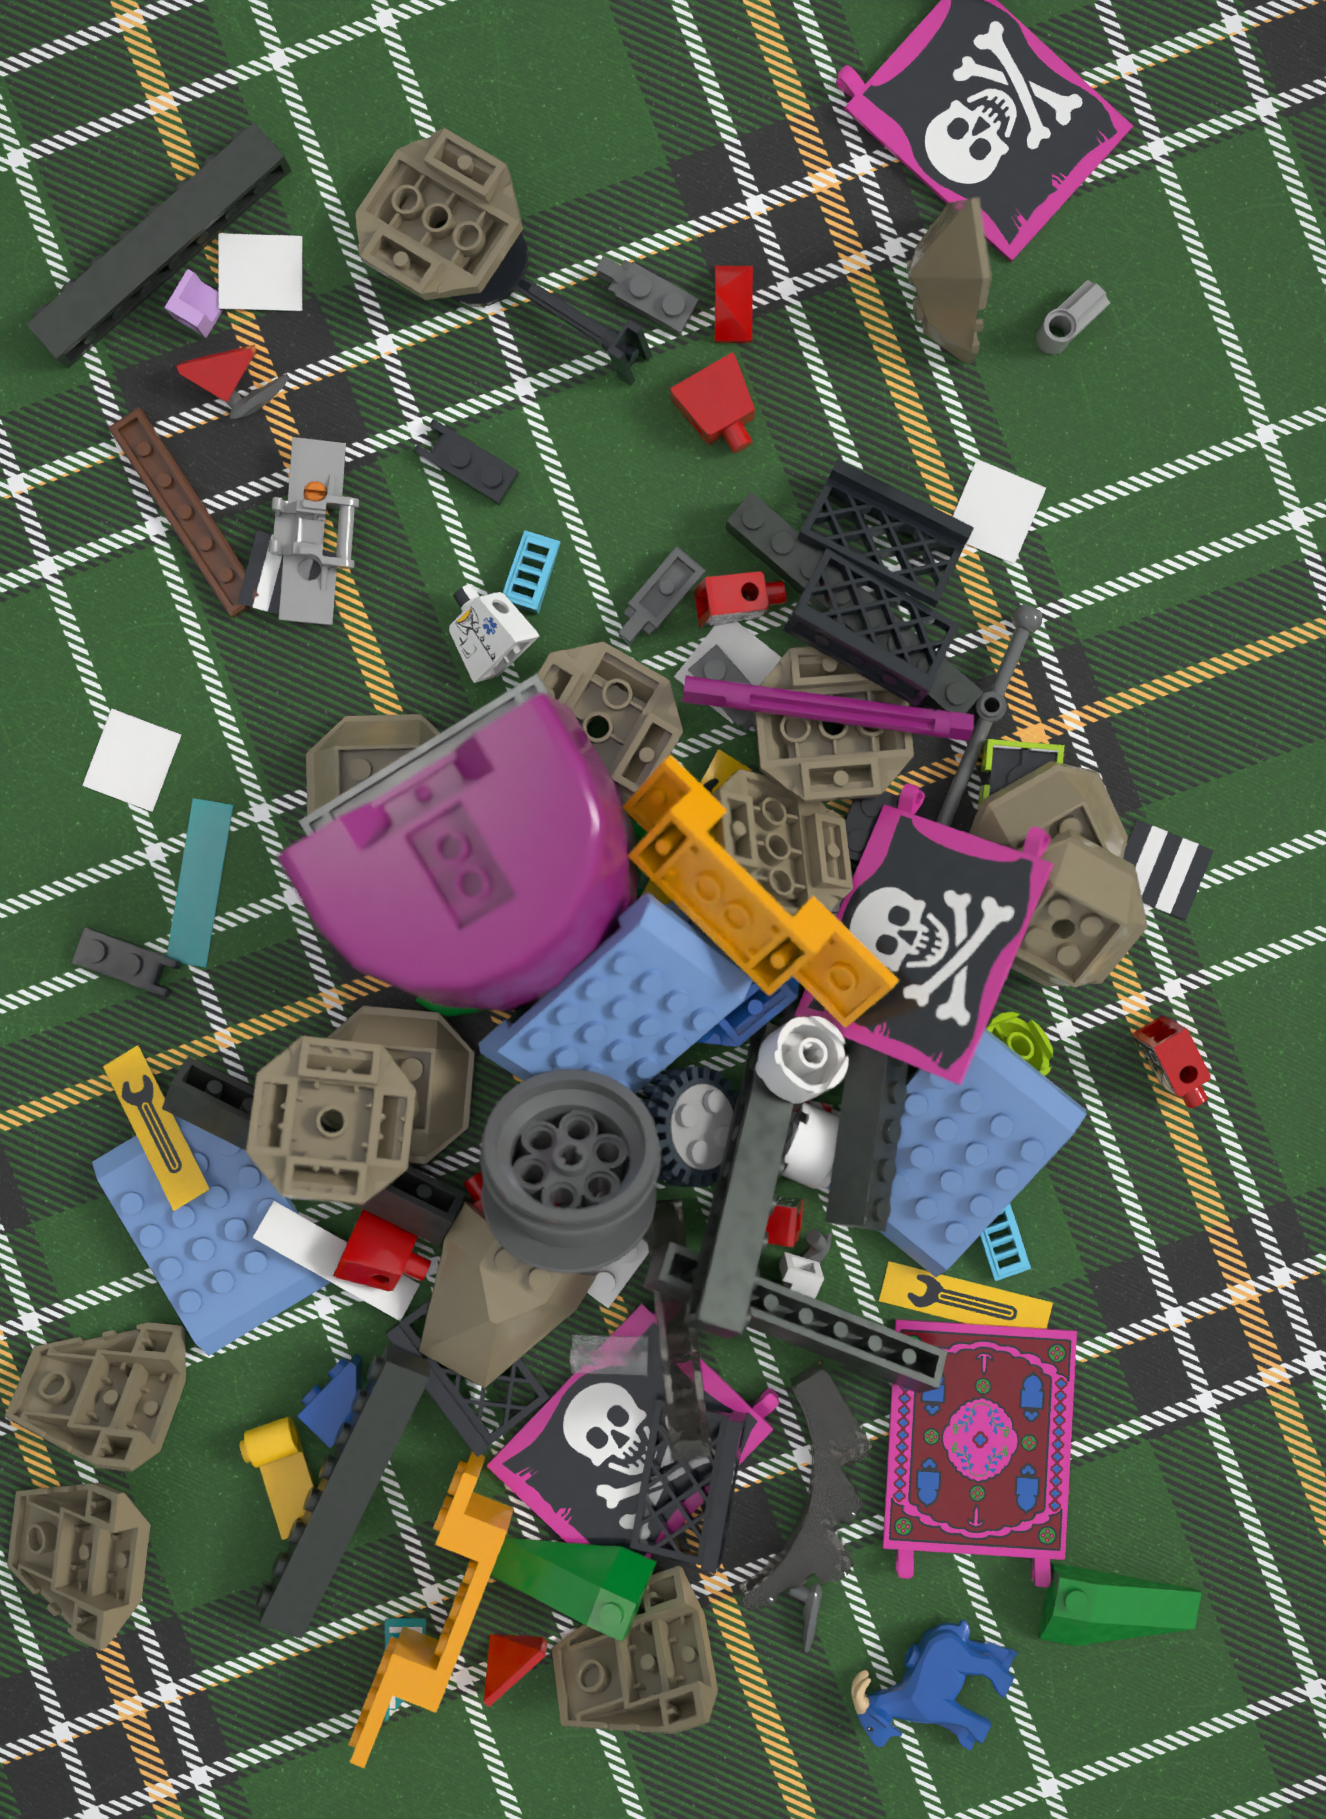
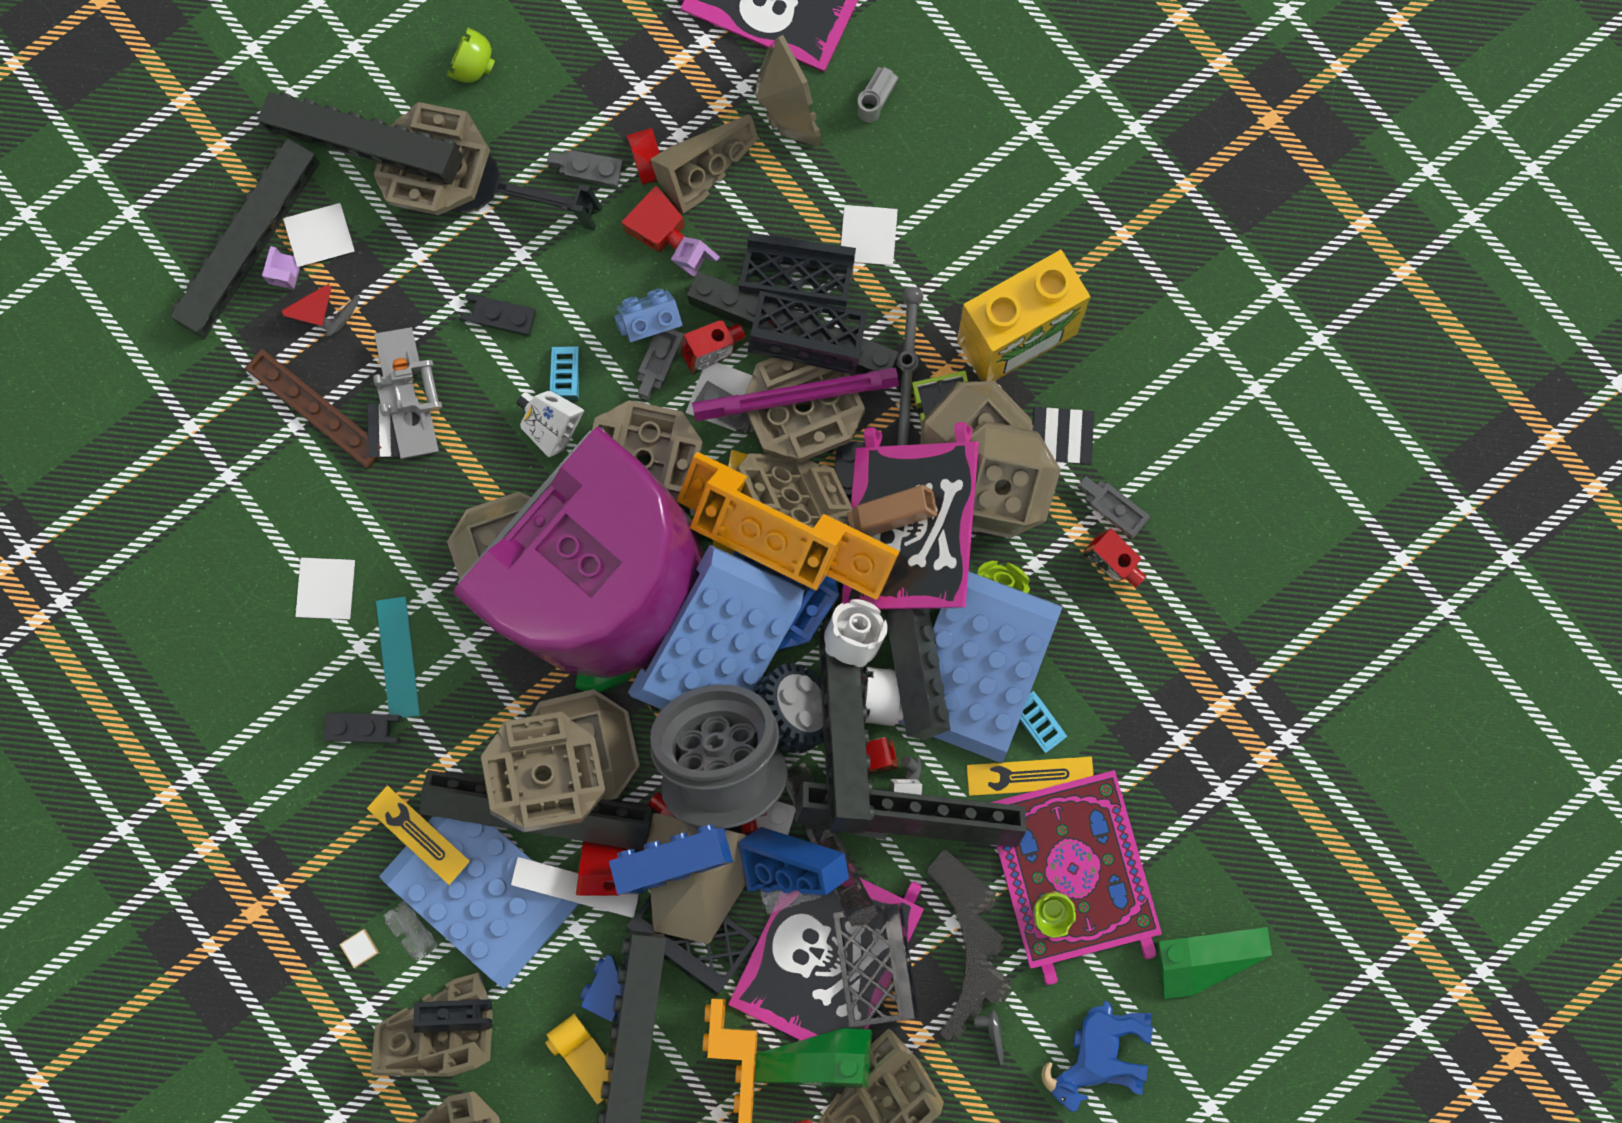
camera: 10 degrees left, 10 degrees down
(41, 1244) = (359, 948): none -> white tile
(119, 1260) = (419, 941): none -> clear hinge
(127, 1377) = (451, 1016): none -> black hinge
(352, 153) = (361, 137): none -> pearl dark grey brick
(464, 1289) = (670, 861): none -> blue wedge
(538, 87) = (471, 58): none -> lime cylinder
(621, 1337) = (790, 864): none -> blue wedge
(664, 532) = (647, 315): none -> medium blue brick
(749, 464) = (691, 255): none -> lavender panel
(795, 337) = (695, 164): none -> dark tan wedge
(905, 916) = (893, 511): none -> medium nougat piece
(936, 1497) = (1054, 914): none -> lime hair
(1173, 704) = (1022, 317): none -> yellow brick
(1196, 989) = (1114, 506): none -> dark grey hinge

